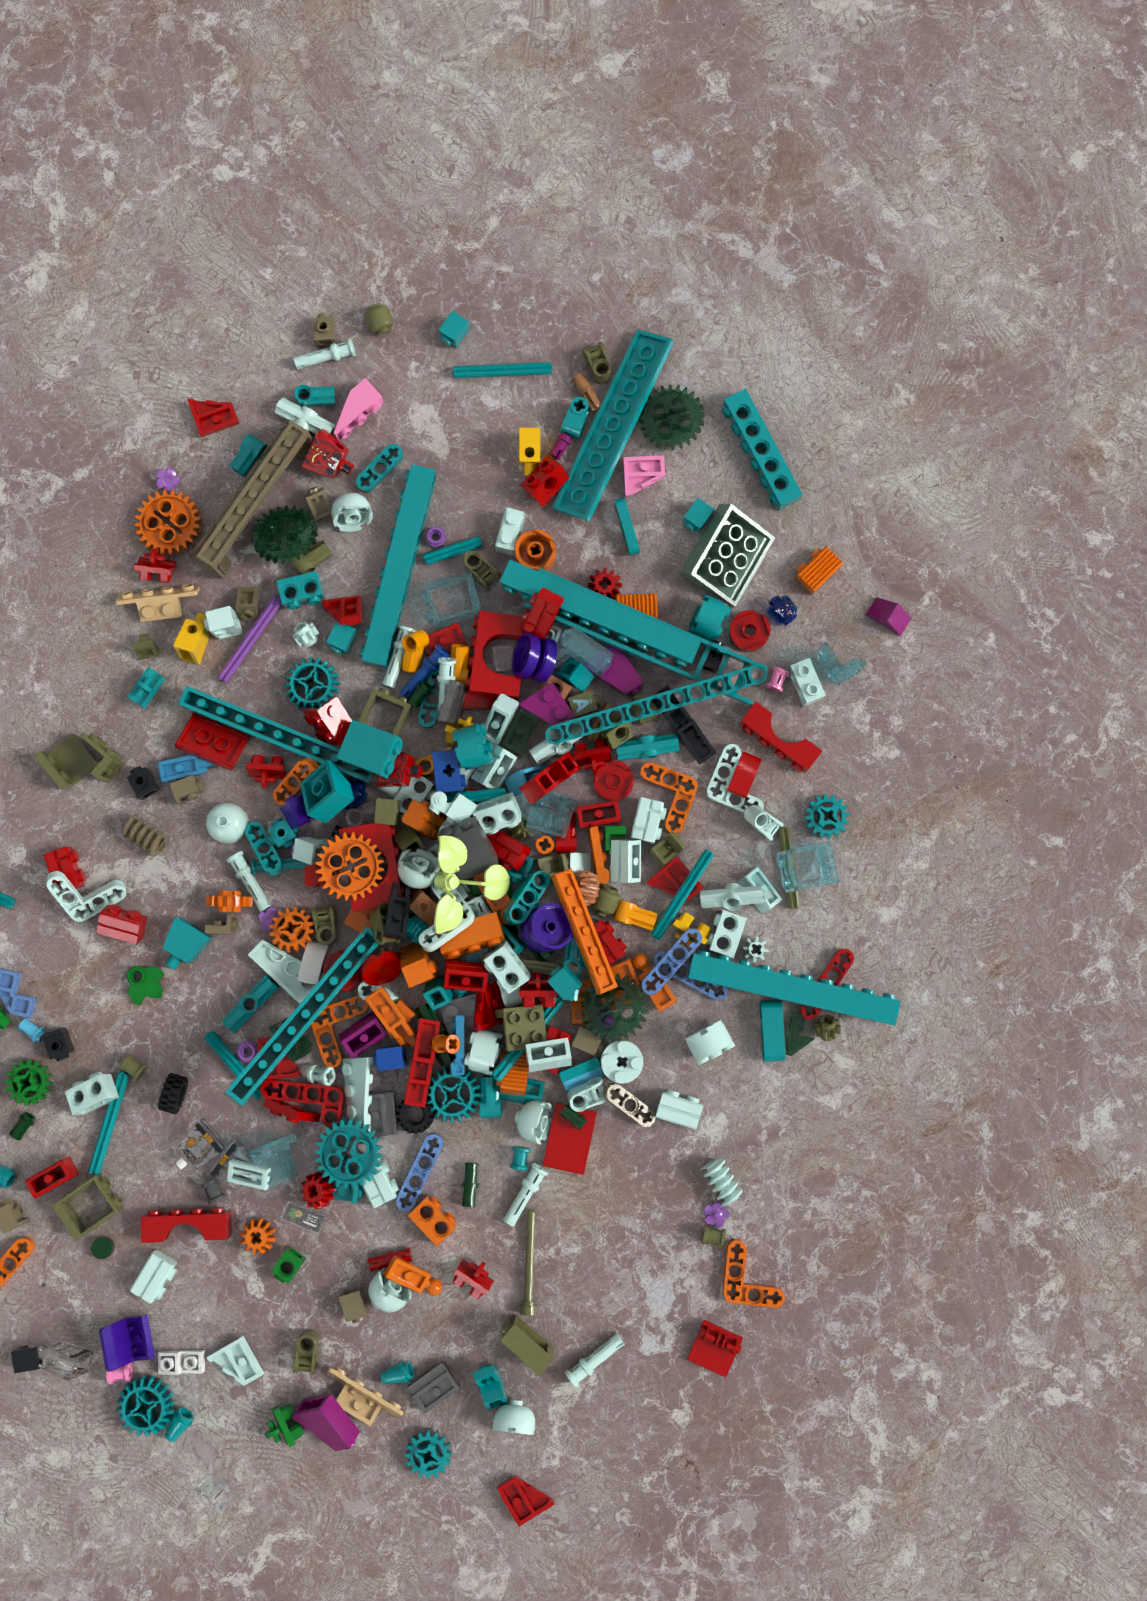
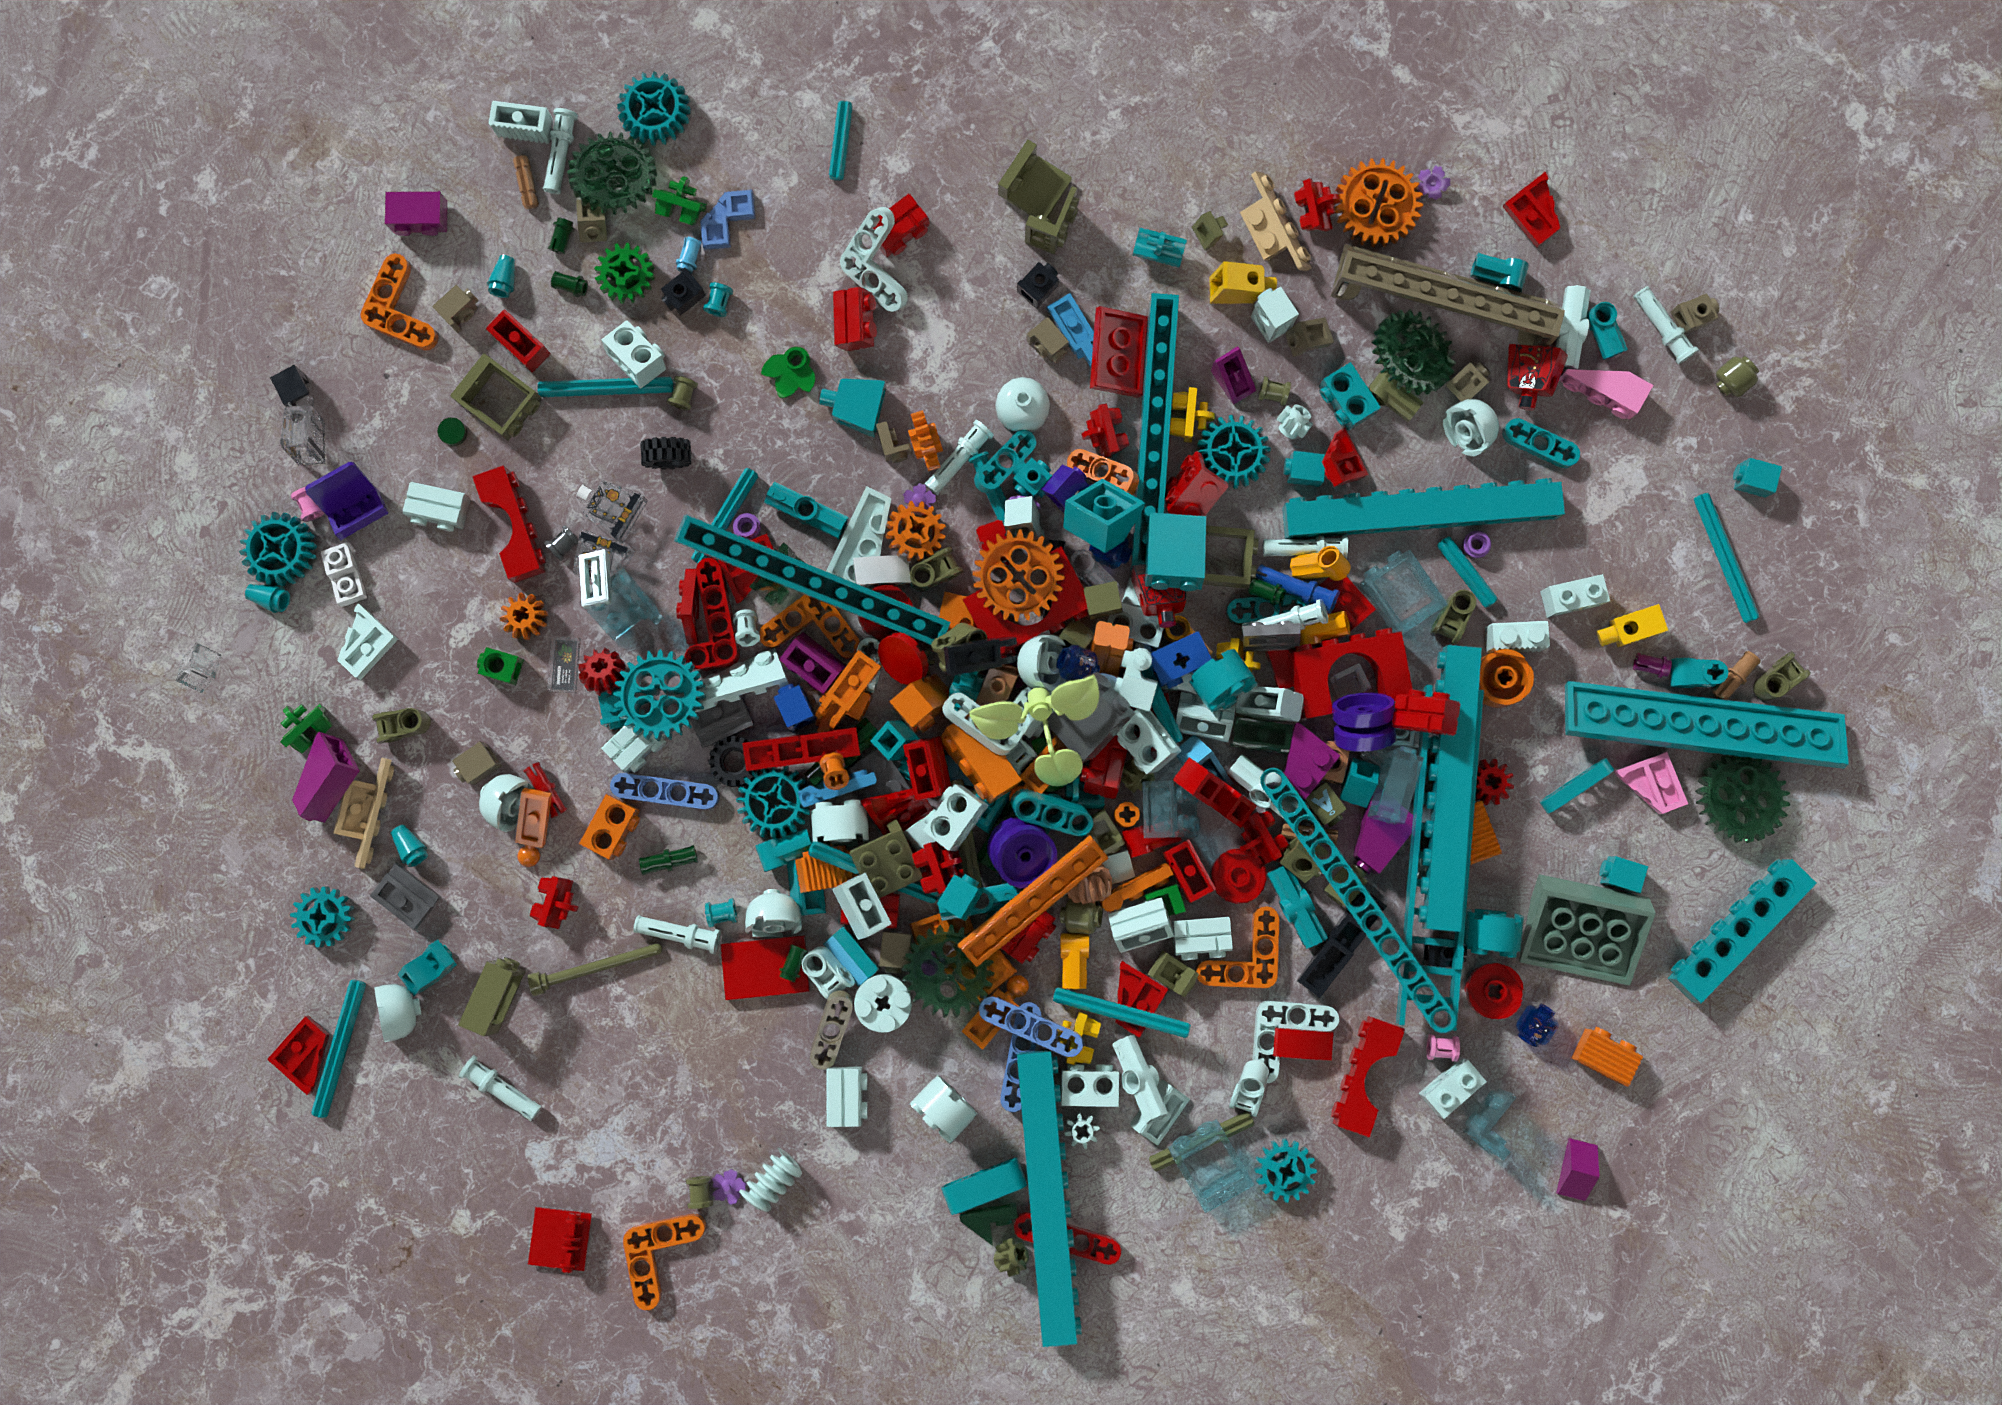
camera: 70 degrees right, 0 degrees up
(72, 1019) = (718, 299): none -> teal bush
(144, 837) = (971, 309): dark tan piece -> none
(250, 639) = (1266, 355): medium lavender axle -> none
(257, 666) = (1233, 375): none -> magenta slope
(265, 705) = (1187, 402): none -> yellow hips
(278, 641) = (1274, 391): none -> olive bush
(426, 845) = (1076, 663): none -> clear blue head
(494, 482) = (1575, 596): none -> light aqua brick
(528, 1470) = (338, 1048): none -> teal axle
(544, 481) = (1599, 660): red brick -> none

